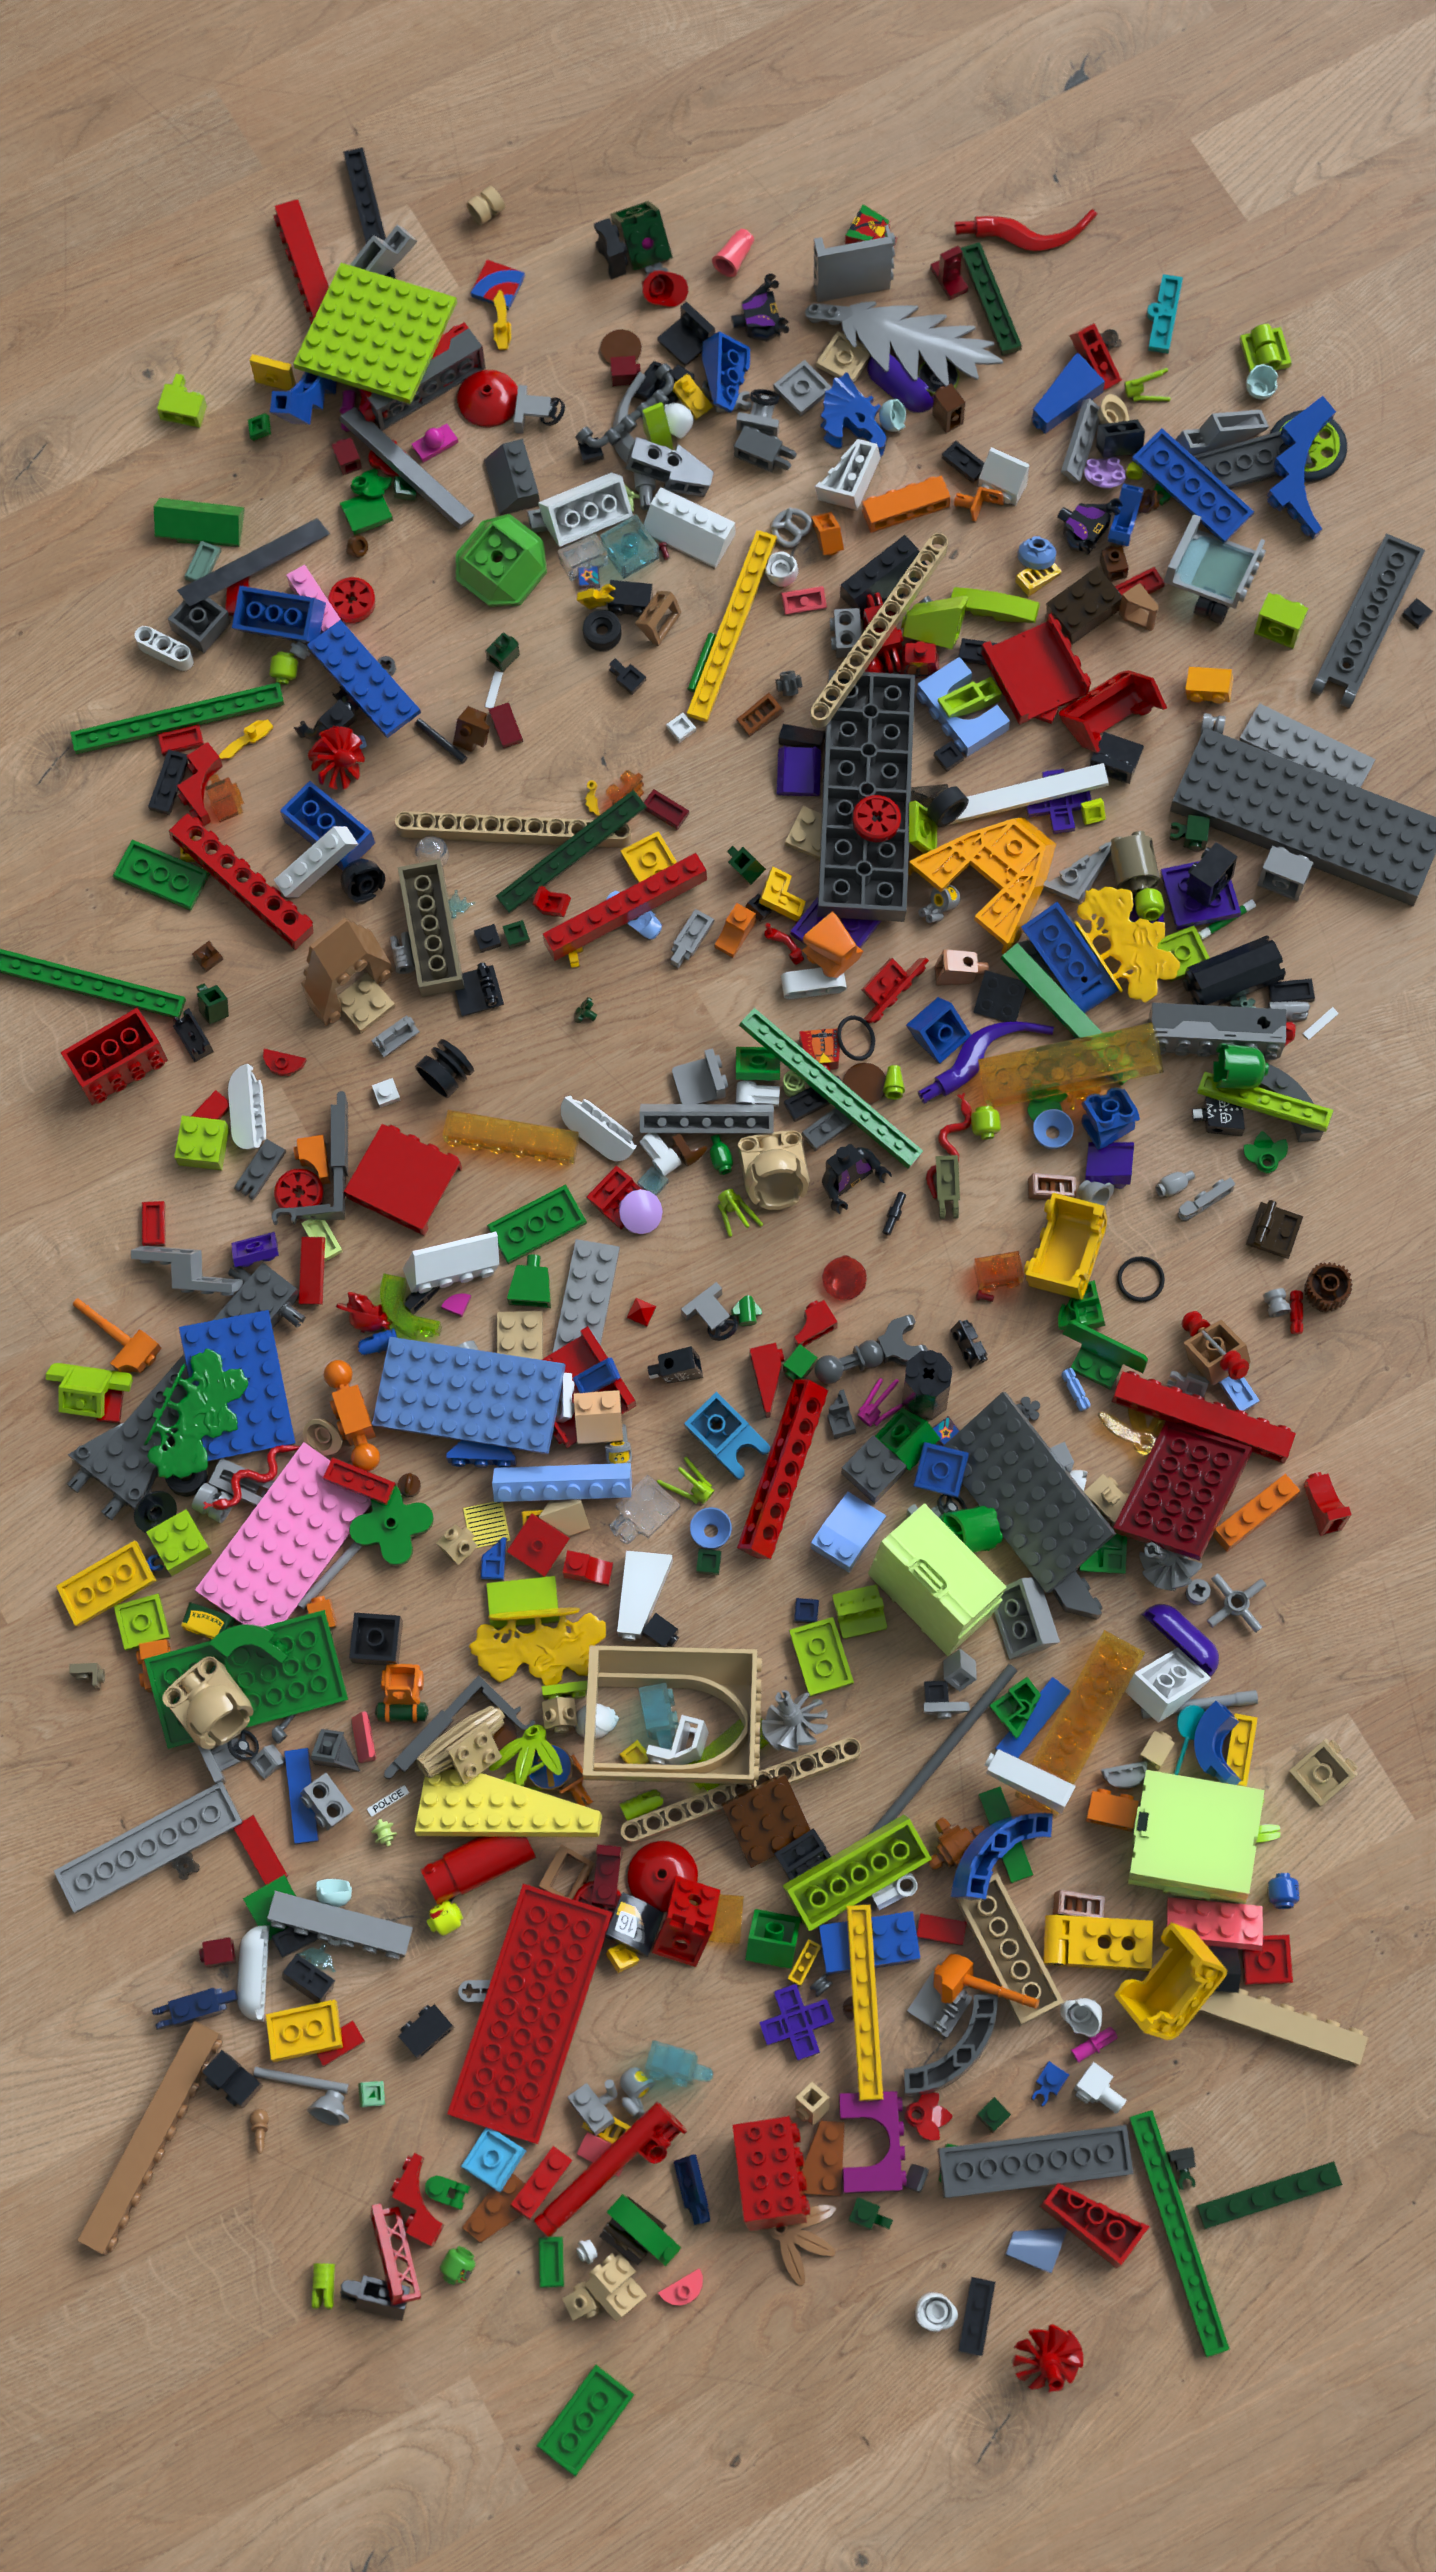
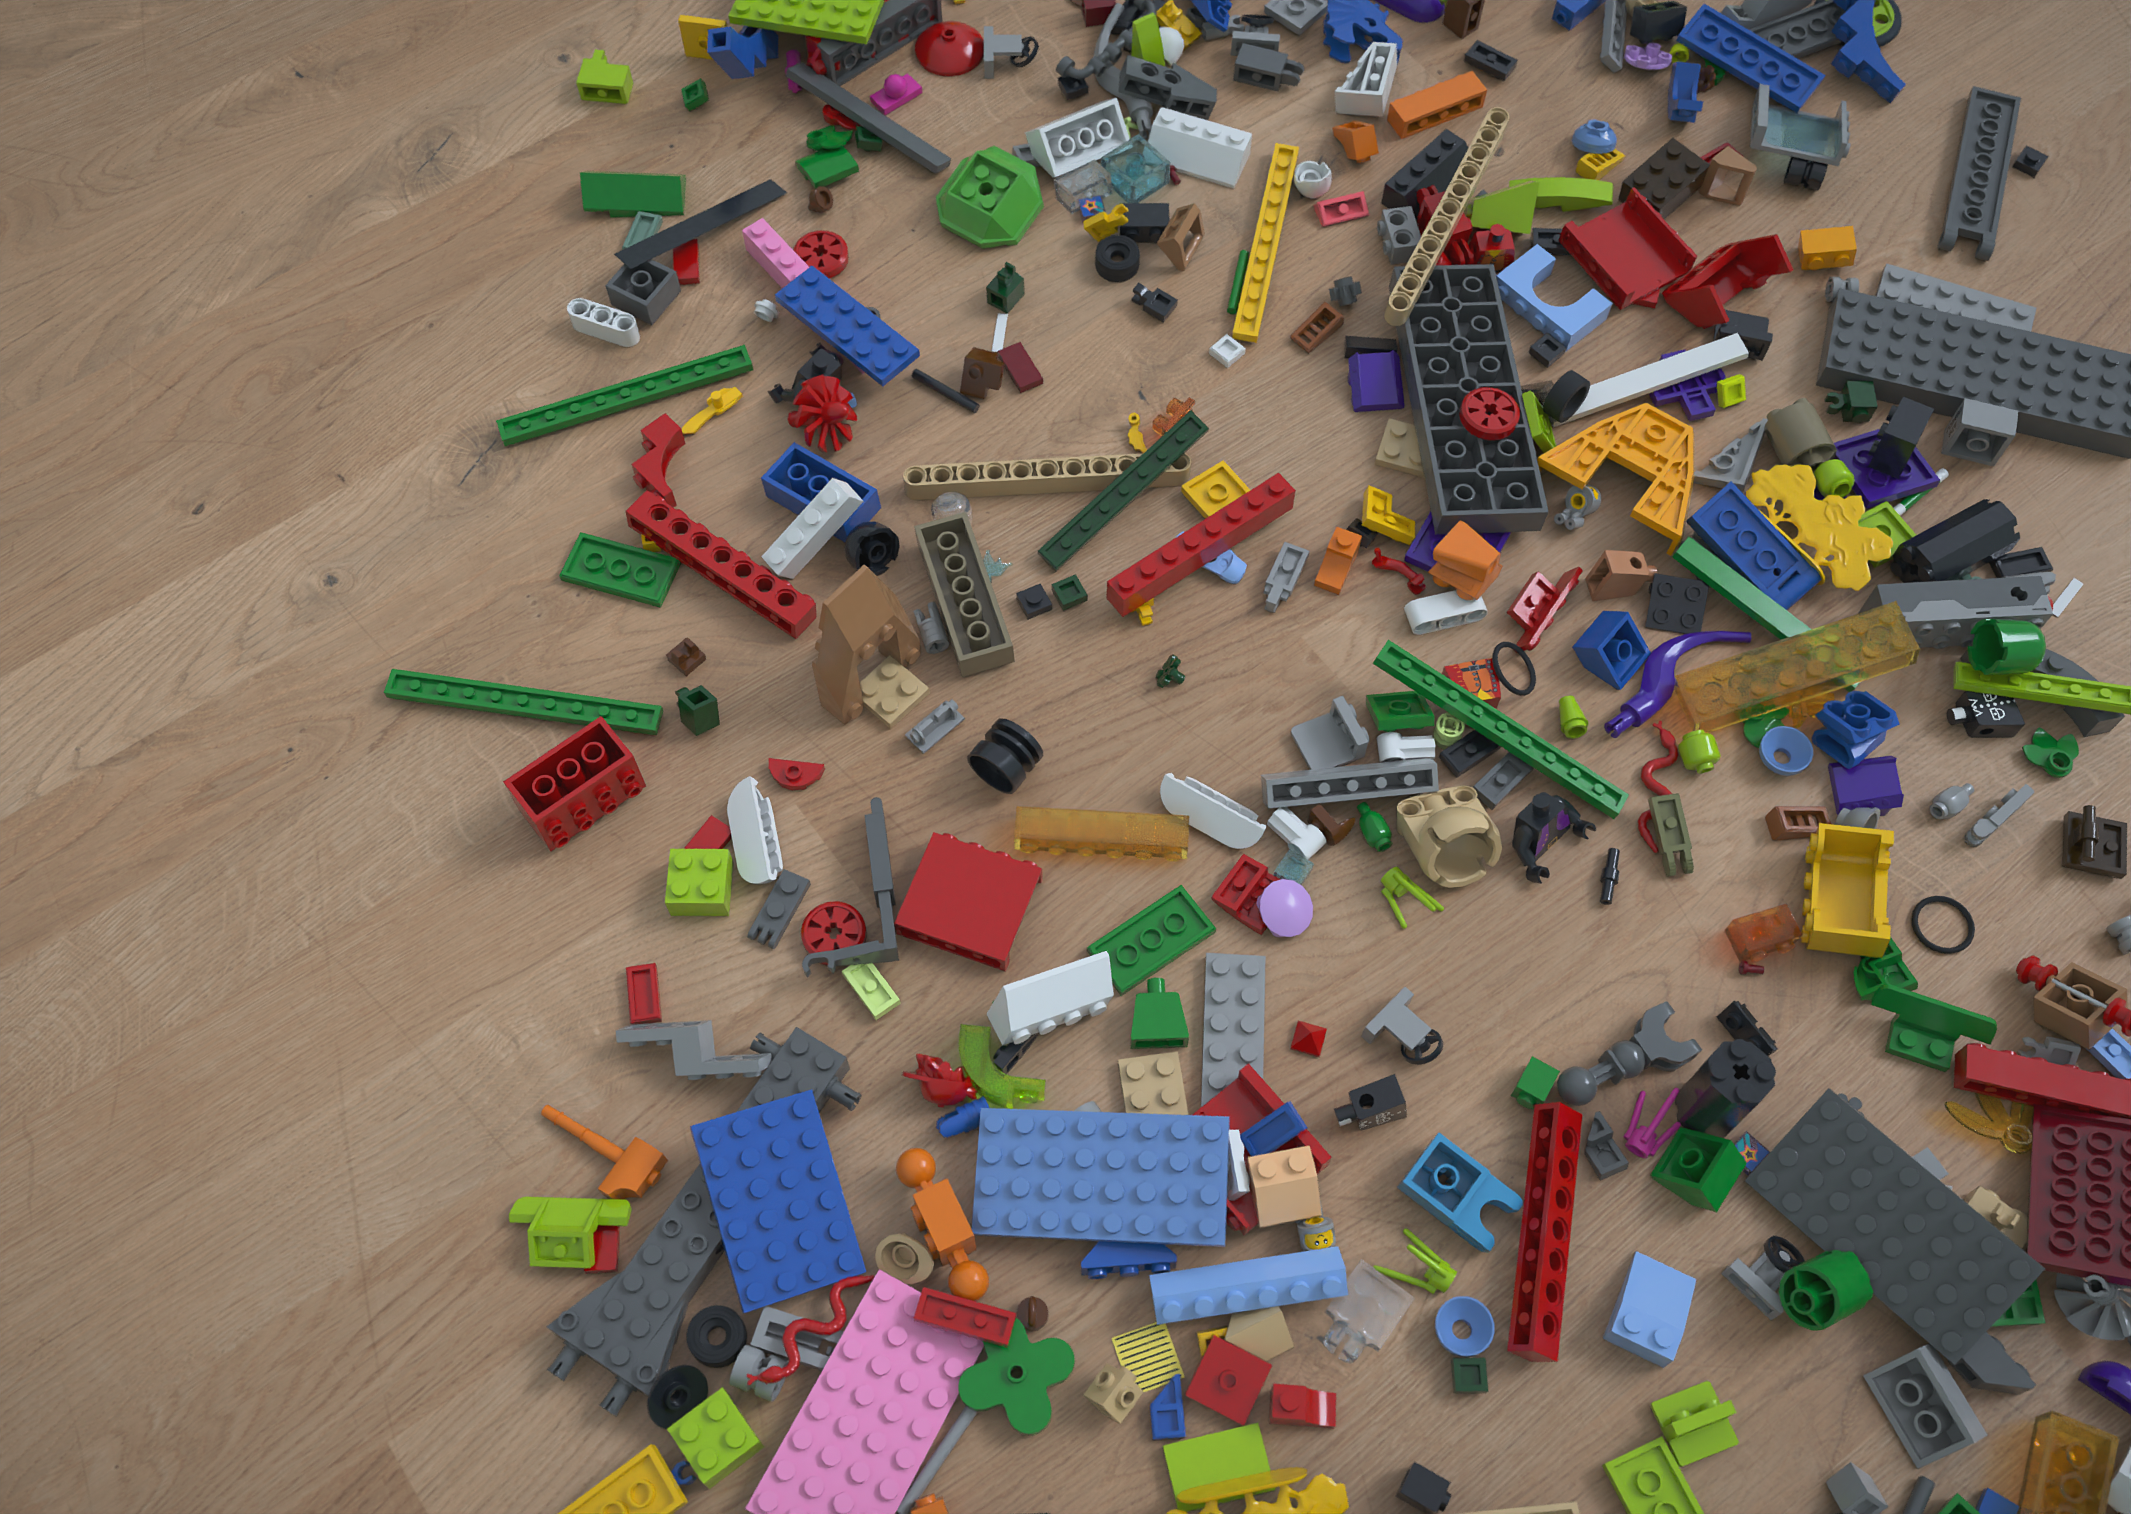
camera: 10 degrees left, 10 degrees down
(166, 786) = (618, 470): black plate -> none
(181, 739) = (630, 419): red tile -> none
(192, 1036) = (675, 752): black hinge -> none
(200, 1414) = (730, 1246): green plant -> none
(224, 798) = (691, 472): clear orange brick -> none
(255, 1249) = (783, 1011): dark purple plate -> none
(278, 614) = (736, 269): blue brick -> none
(283, 667) = (748, 329): lime head -> none
(312, 1271) = (863, 1032): red tile -> none
(313, 1153) = (847, 882): orange arch -> none
(346, 456) = (798, 113): dark red brick -> none
(386, 1092) = (932, 796): white plate -> none
(456, 1304) = (1061, 1055): dark pink tile -> none
(480, 990) = (1034, 662): black hinge -> none
(512, 478) = (989, 115): dark grey slope -> none
(551, 903) = (1107, 552): red bracket -> none
(641, 1587) = (1383, 1427): white slope -> none
(666, 809) = (1227, 439): dark red tile -> none
(745, 864) = (1336, 485): dark green brick -> none
(746, 1311) = (1448, 1021): green piece -> none
(767, 1369) = (1493, 1097): red slope -> none
(790, 526) = (1311, 139): light grey piece -> none
(806, 1610) = (1619, 1431): dark blue tile -> none
(818, 1323) = (1545, 1024): red arch -> none
(844, 1278) = (1566, 964): clear red dish -> none
(866, 1081) = (1537, 717): reddish brown piece -> none
(873, 1469) = (1668, 1216): dark grey brick -> none
(892, 415) = (1402, 22): light aqua hair -> none
(936, 1579) = (1814, 1368): yellowish green piece -> none
(941, 1469) = (1762, 1205): blue tile -> none
(970, 698) = (1561, 284): lime slope -> none
(976, 502) = (1511, 97): orange bracket -> none
(1004, 474) = (1541, 65): white slope -> none
(1075, 1389) = (1903, 1076): light blue axle -> none
(1087, 524) = (1643, 105): black torso -> none
(1114, 563) = (1686, 134): reddish brown brick -> none
(1281, 620) = (1889, 175): lime brick -> none

